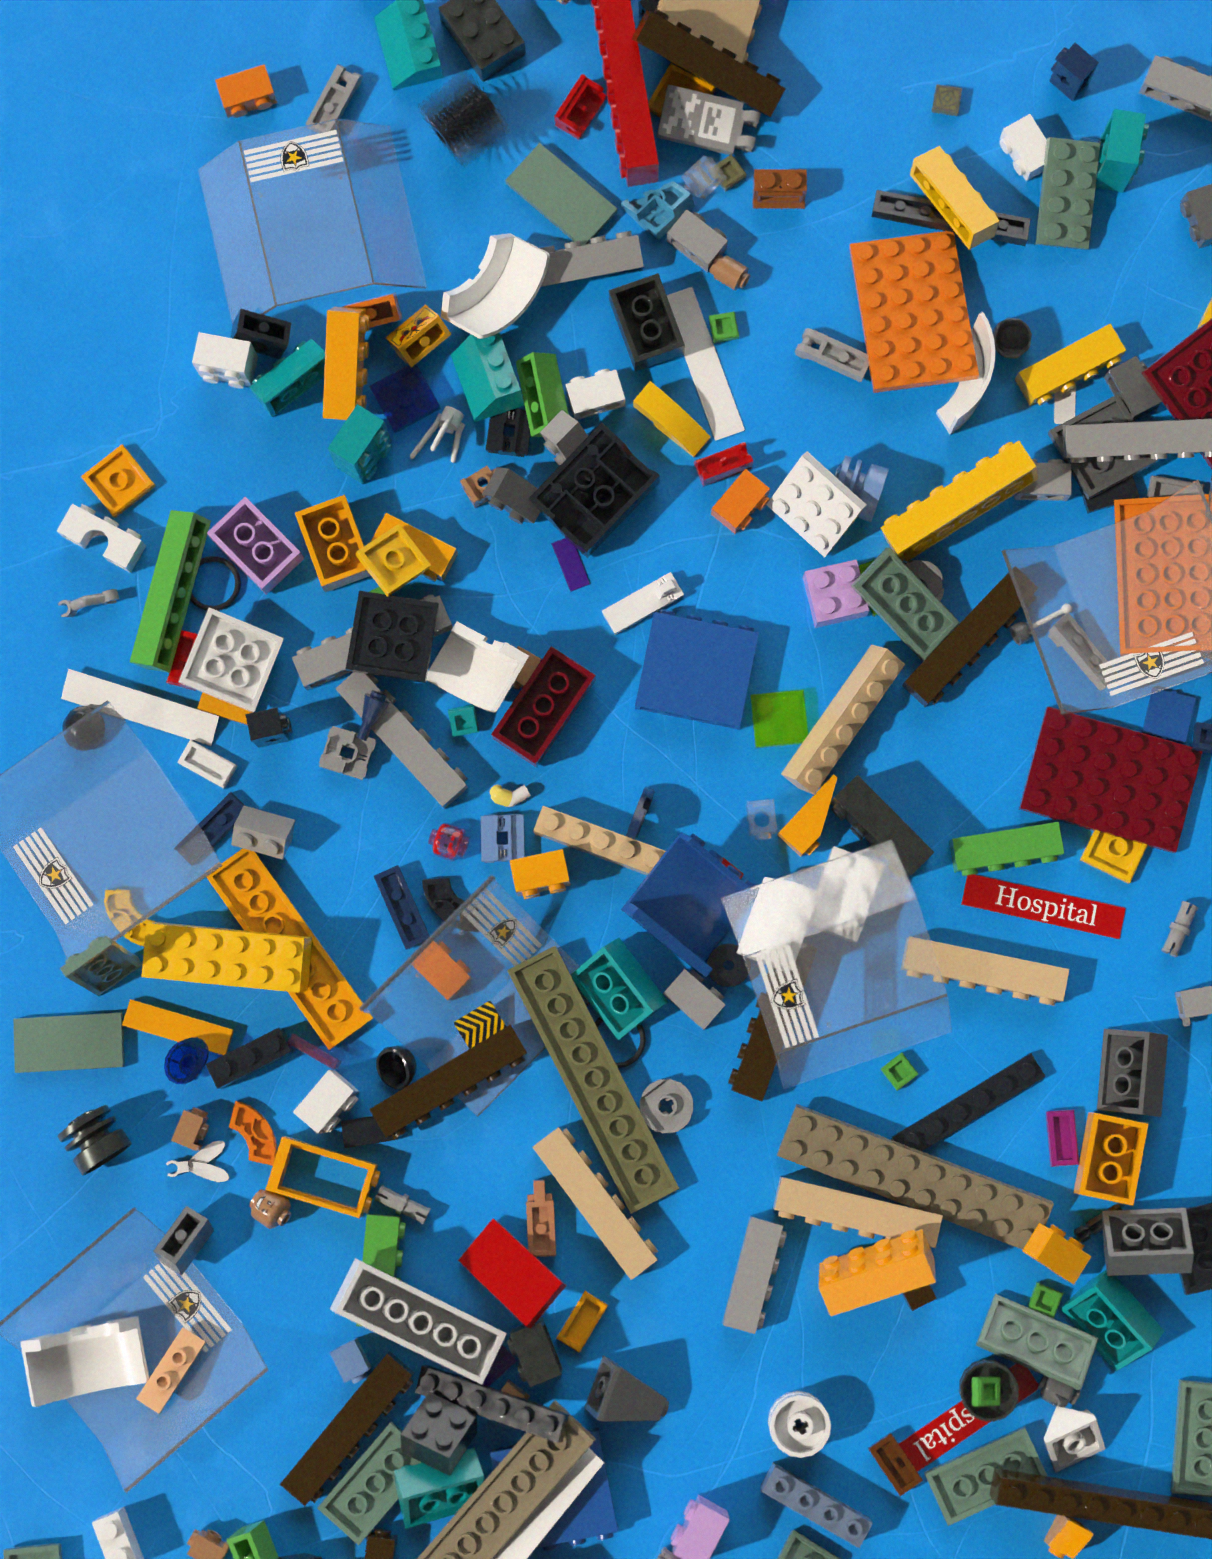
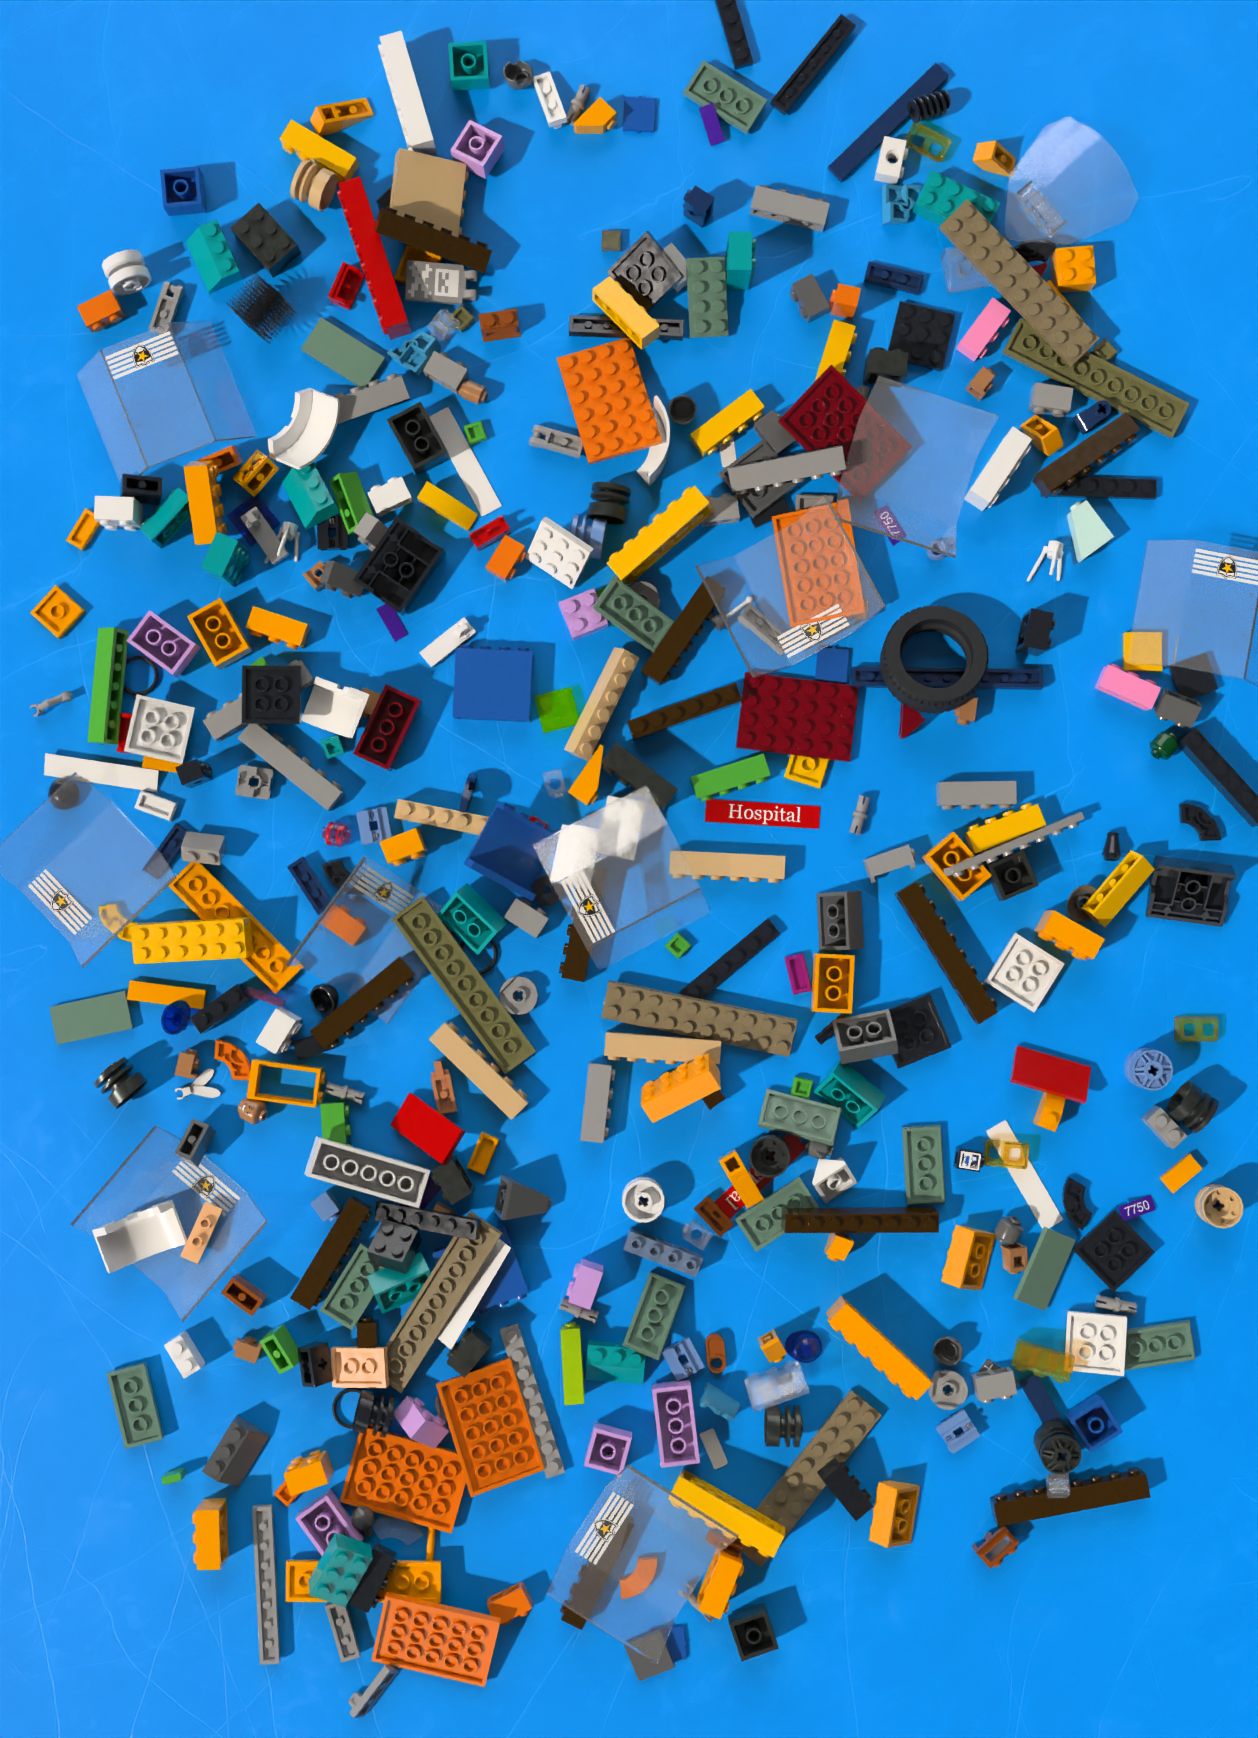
camera: 20 degrees left, 5 degrees up
(82, 525) = (68, 660): white arch -> none
(100, 965) = (102, 961): sand green plate -> none
(172, 376) = (83, 530): none -> light orange tile
(216, 1468) = (244, 1294): none -> dark orange brick
(289, 45) = (126, 272): none -> white wheel
(373, 708) = (266, 748): dark blue cone -> none
(393, 560) = (262, 639): yellow plate -> none
(416, 420) = (264, 535): none -> light grey hinge
(479, 1024) = (378, 959): sticker -> none
(508, 798) = (373, 797): arm -> none
(876, 1495) = (700, 1242): none -> clear brick
(895, 447) = (609, 498): none -> pearl dark grey wheel
(941, 1416) = (740, 1178): none -> light orange slope
(956, 748) = (684, 712): none -> dark brown brick
(985, 1391) = (767, 1157): bright green tile -> none
(990, 147) = (646, 272): none -> plate
(1056, 1252) = (803, 1054): light orange brick -> none

